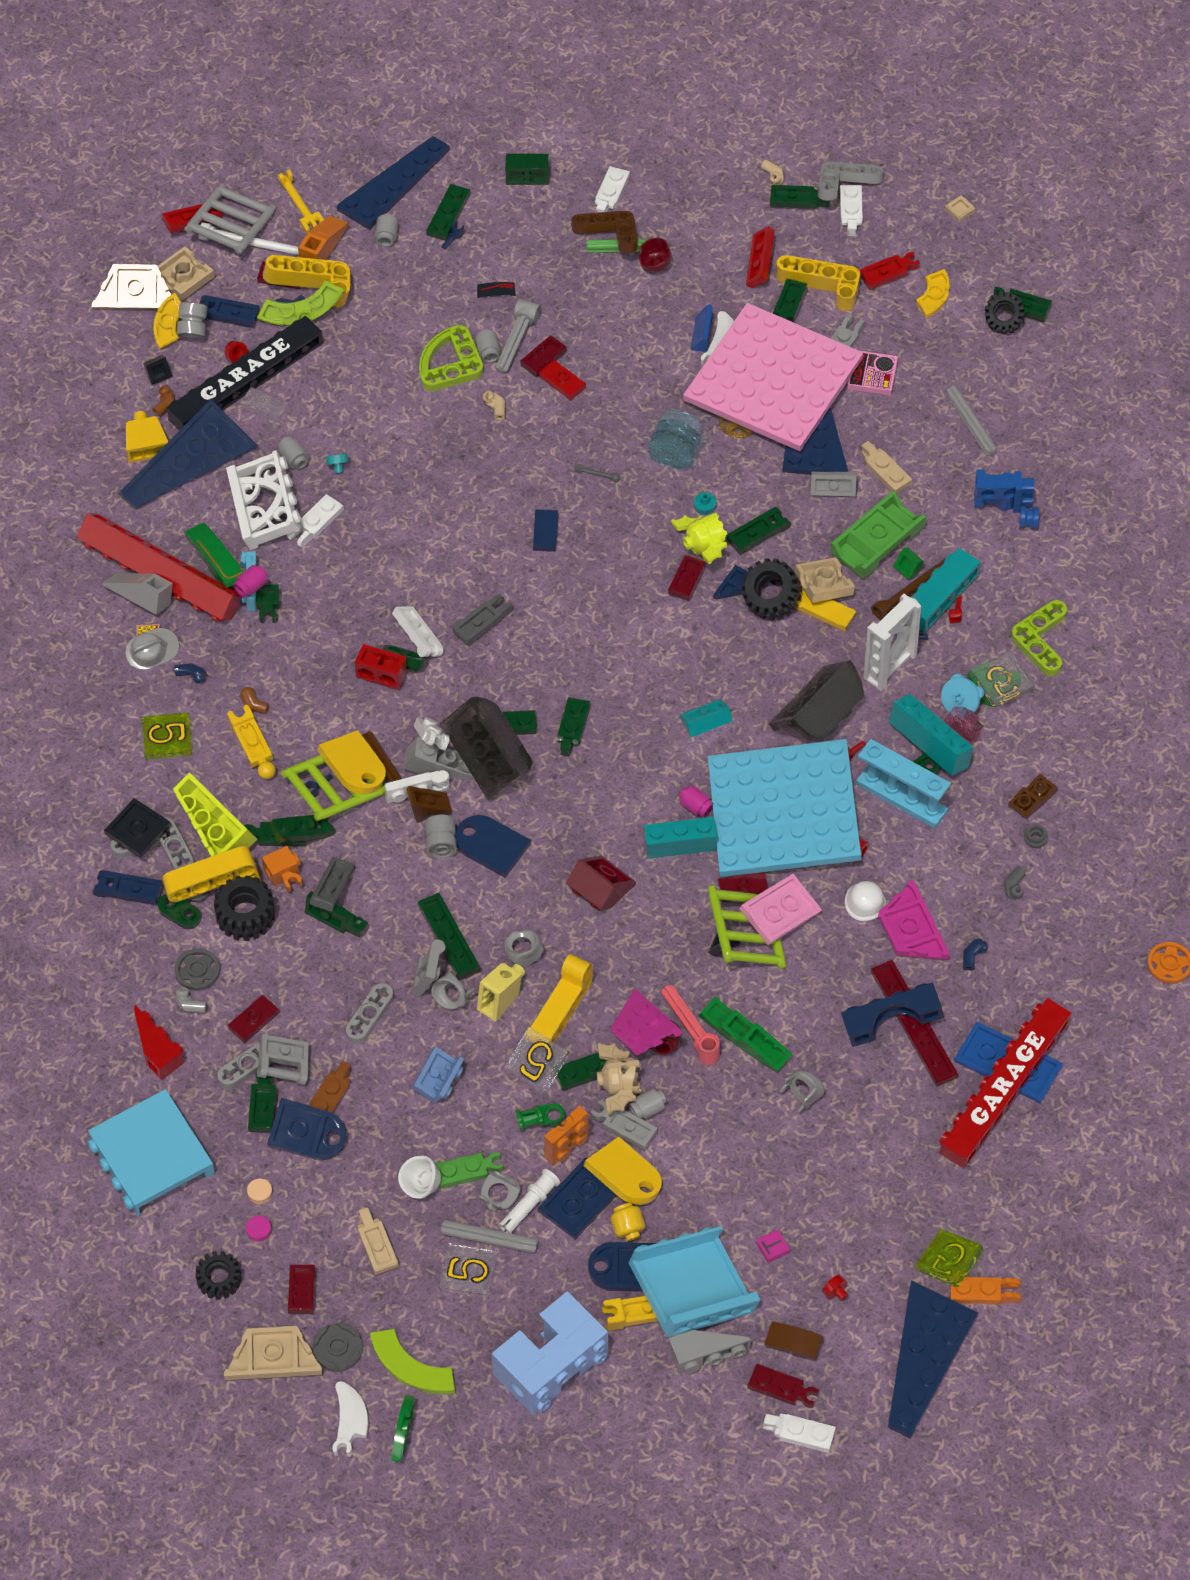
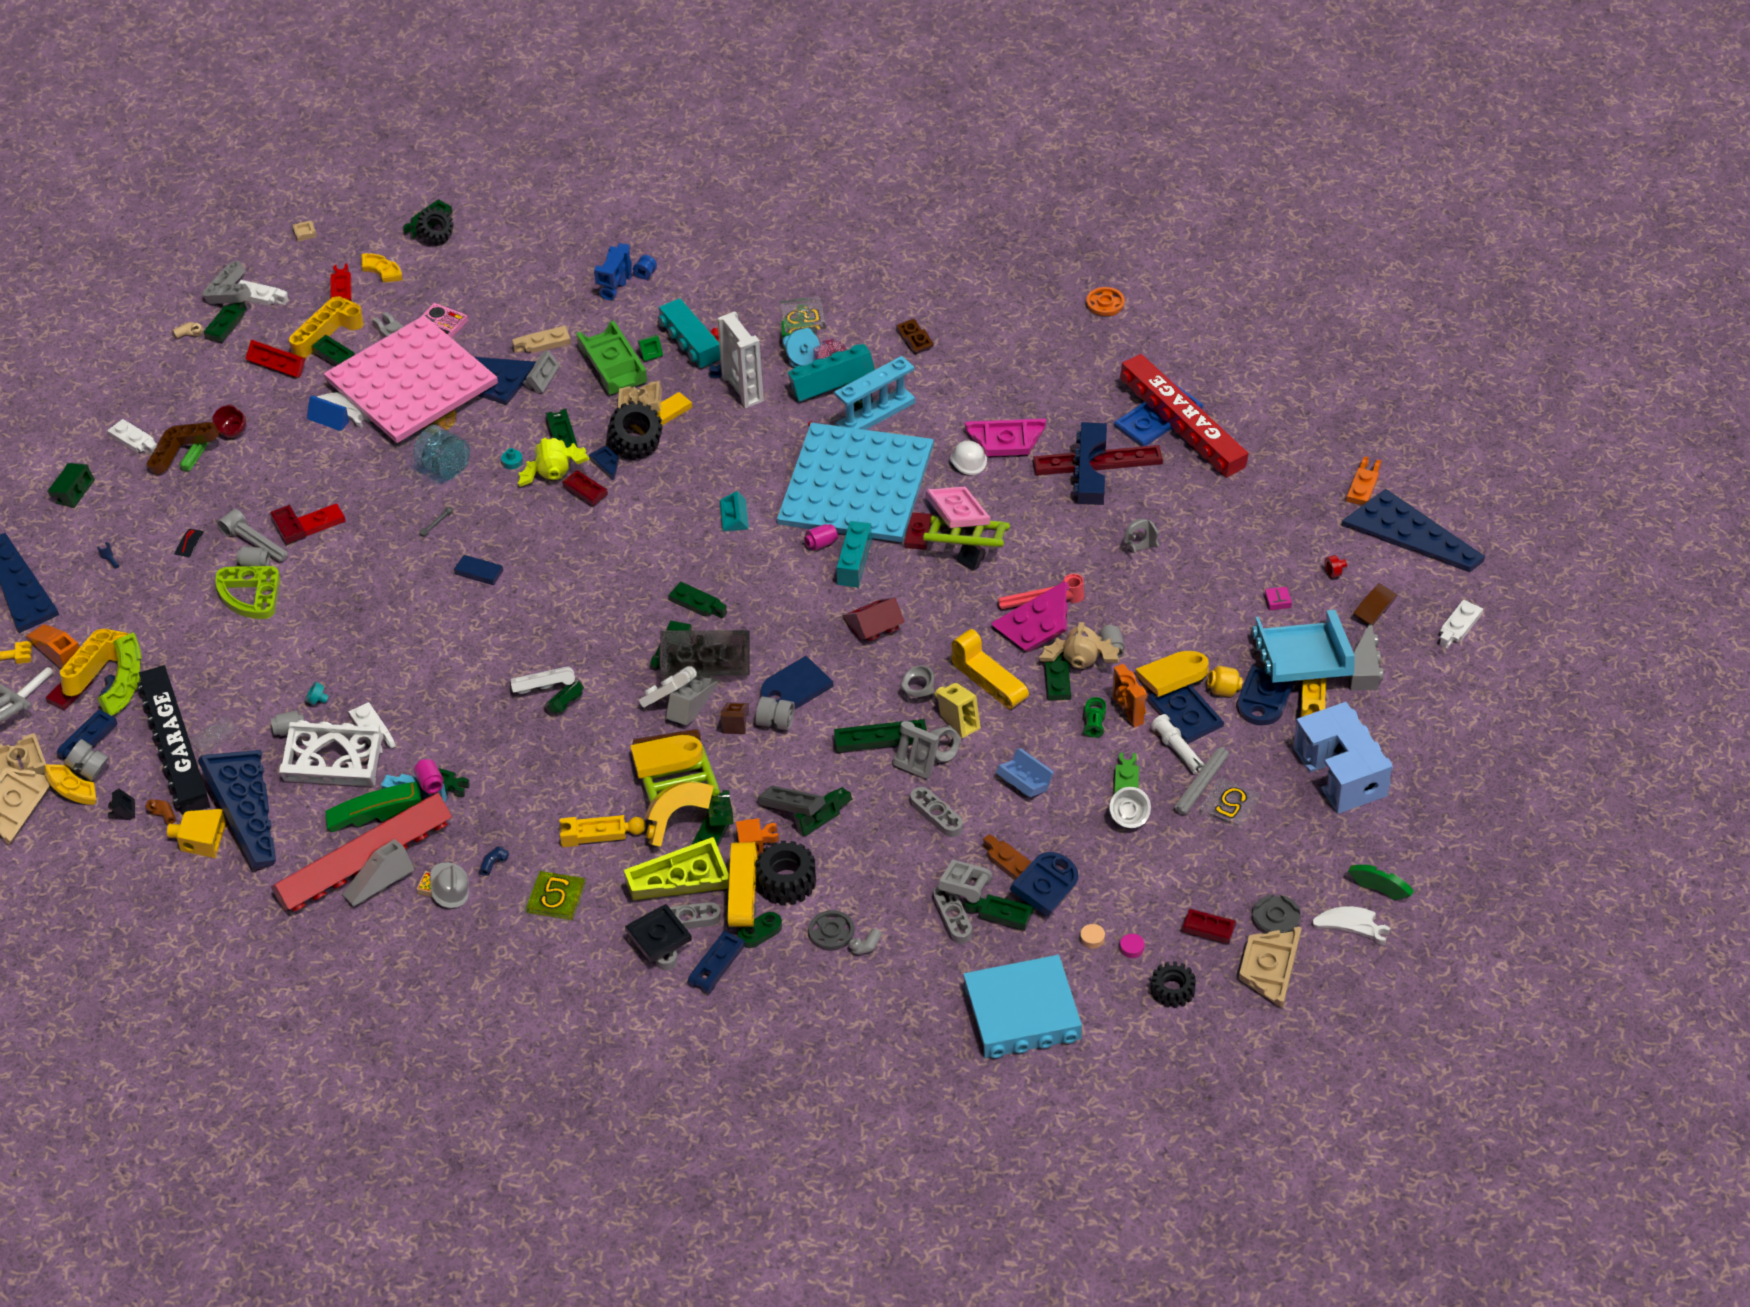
camera: 70 degrees left, 10 degrees down
(159, 1051) = (906, 977): red slope -> none
(235, 350) = (140, 740): red tile -> none
(248, 698) = (550, 821): dark orange arm -> none
(253, 1019) = (904, 899): dark red plate -> none
(293, 788) = (669, 800): none -> yellow arch
(376, 1243) = (1179, 860): tan hinge -> none
(380, 666) = (570, 711): red brick -> none
(386, 230) = (72, 598): light grey brick -> none
(397, 792) = (711, 718): white hinge -> none
(408, 1370) = (1314, 871): lime tile -> none
(448, 212) = (79, 553): dark green plate -> none
(482, 619) = (553, 634): dark grey hinge -> none
(495, 402) = (318, 569): tan arm -> none
(513, 1190) = (1158, 750): light grey piece -> none
(537, 1060) = (1039, 701): clear tile -> none
(626, 1126) = (1132, 656): light grey plate -> none
(745, 1035) = (1072, 561): green slope -> none
(781, 1386) = (1412, 626): dark red plate -> none
(821, 702) = (763, 429): clear smoke windscreen -> none
(882, 608) = (685, 375): reddish brown piece -> none
(949, 1257) = (1330, 491): clear neon green tile -> none
(969, 953) = (1046, 409): dark blue arm -> none
(971, 420) = (525, 278): light grey axle -> none
(1011, 883) = (989, 369): dark grey arm -> none
(1033, 636) = (758, 297): lime beam -> none
(1035, 830) = (953, 343): dark grey plate -> none

